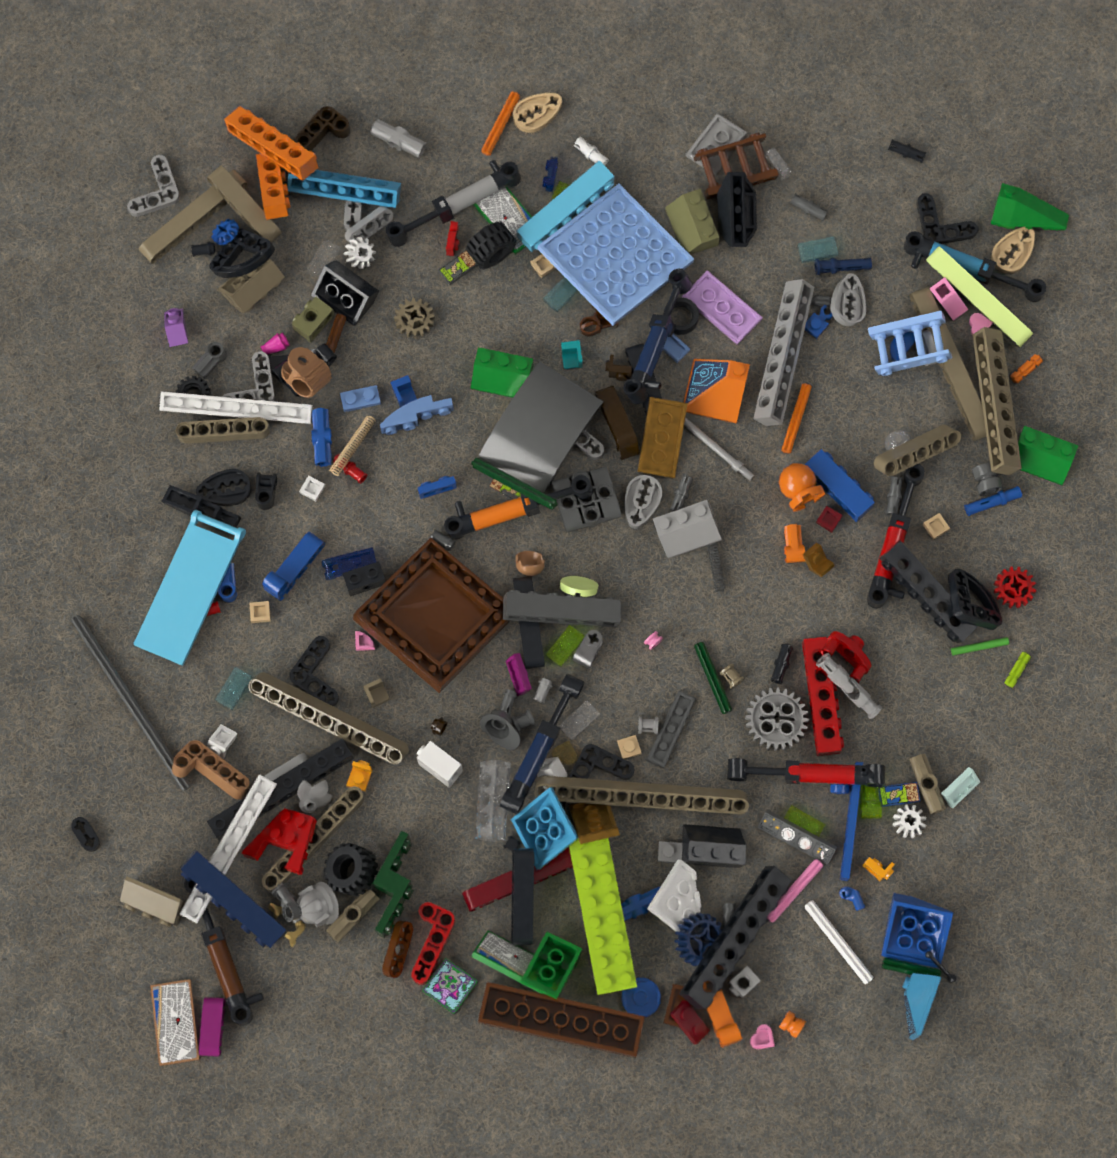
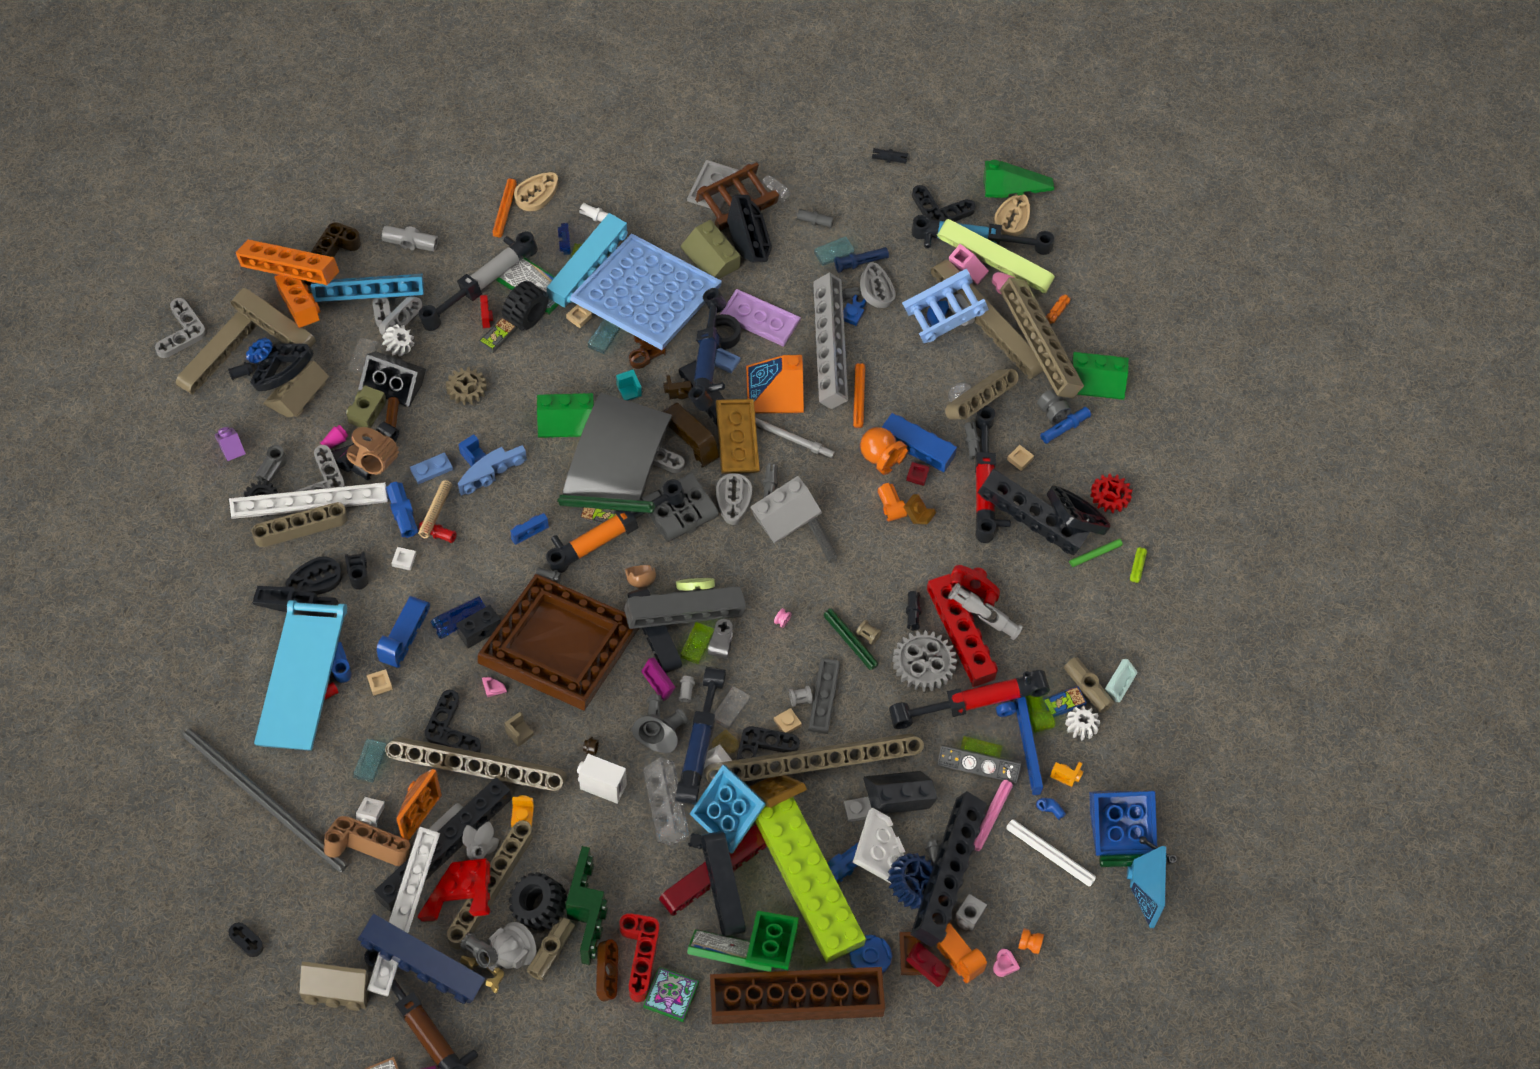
camera: 20 degrees left, 15 degrees down
(265, 745) = (418, 803): none -> orange slope

